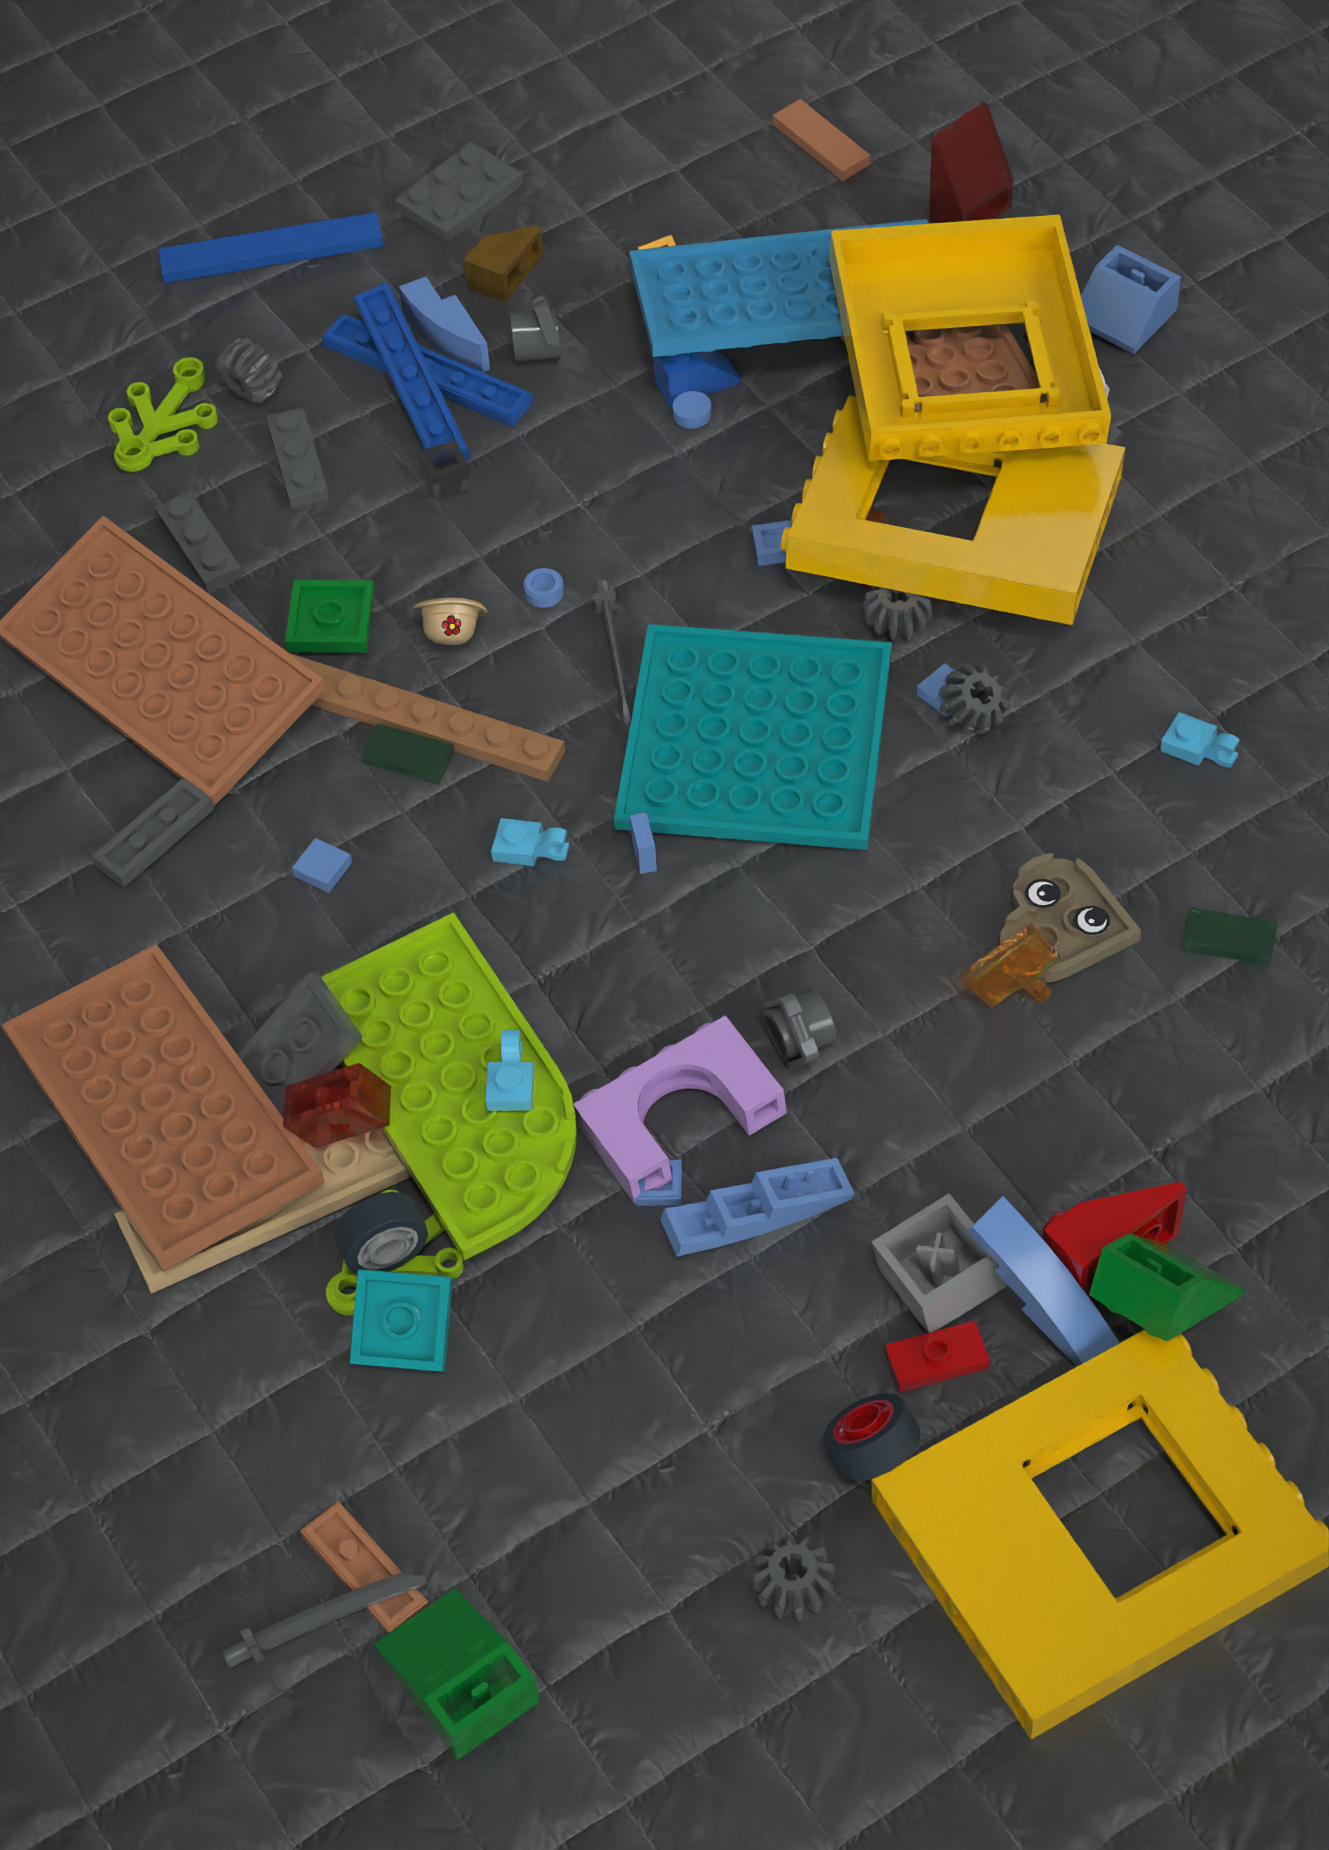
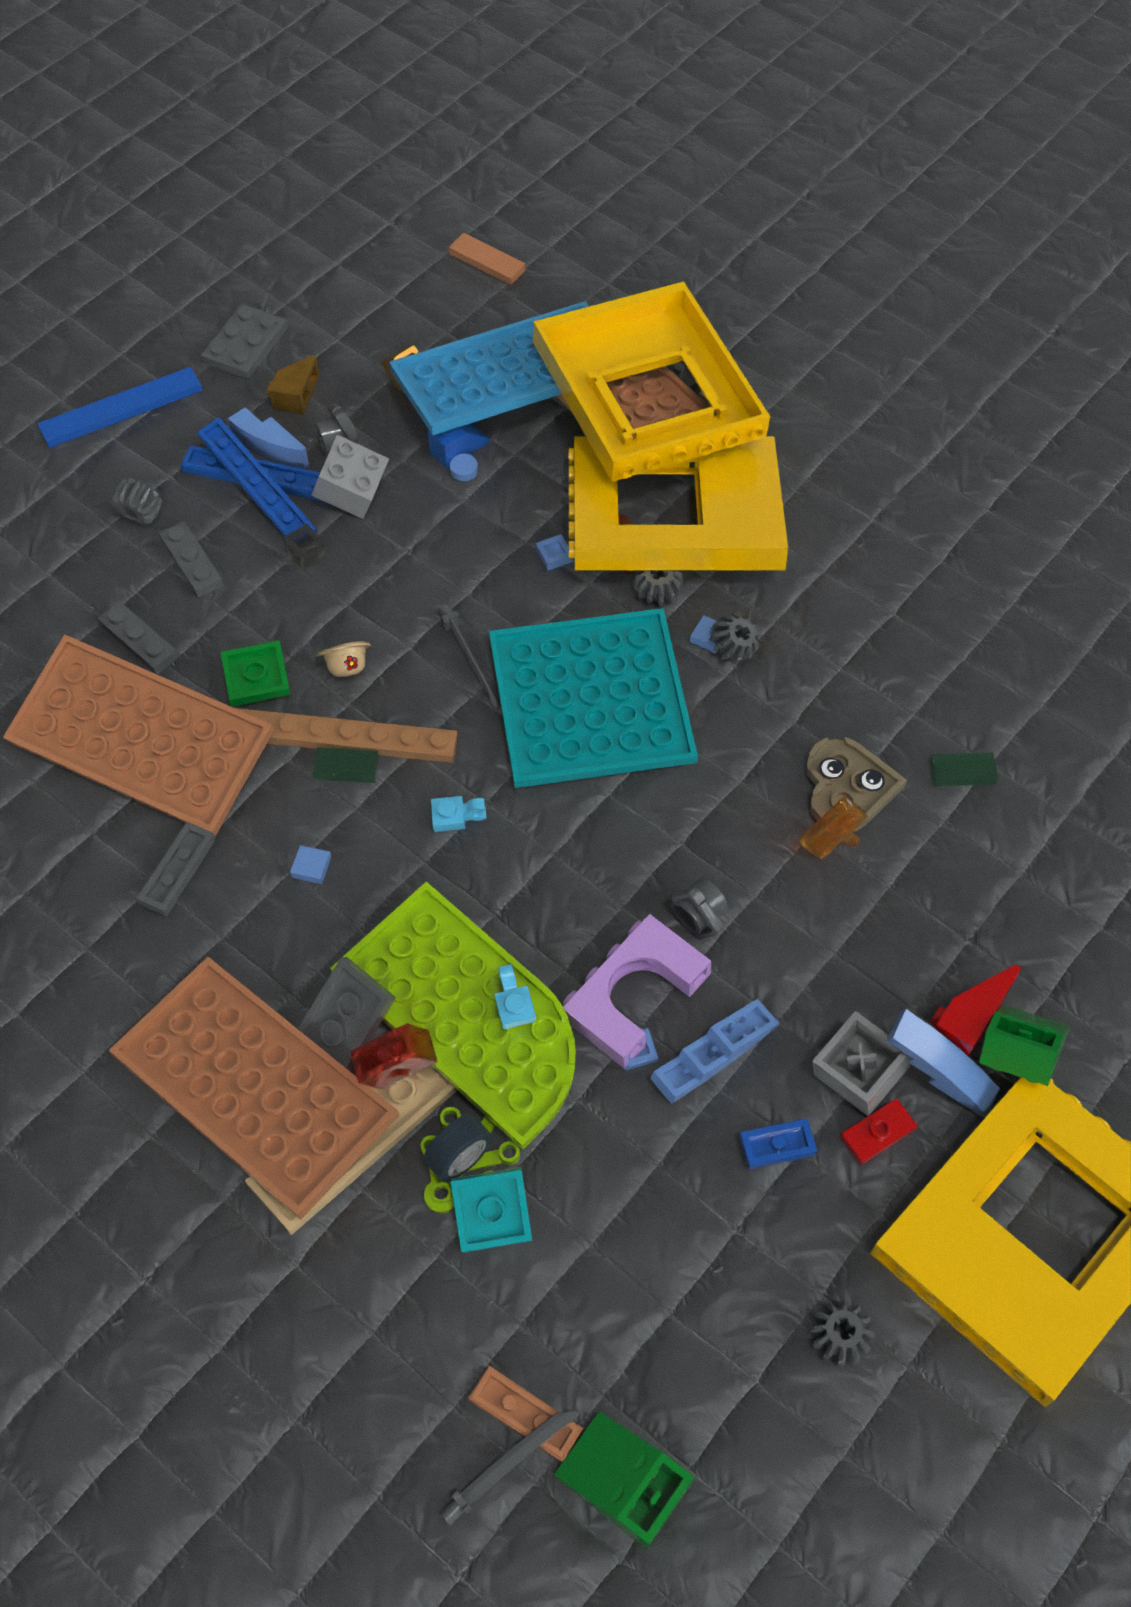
camera: 20 degrees left, 5 degrees up
(137, 452) = (70, 578): lime plant -> none
(532, 391) = (350, 476): none -> light grey brick
(543, 587) = (402, 619): medium blue tile -> none
(643, 843) = (540, 794): medium blue tile -> none
(796, 1337) = (778, 1143): none -> blue plate
(872, 1436) = (862, 1209): black wheel -> none
(969, 171) = (603, 263): clear red slope -> none
(1129, 298) = (741, 329): medium blue slope -> none
(1195, 739) = (888, 633): medium azure plate -> none

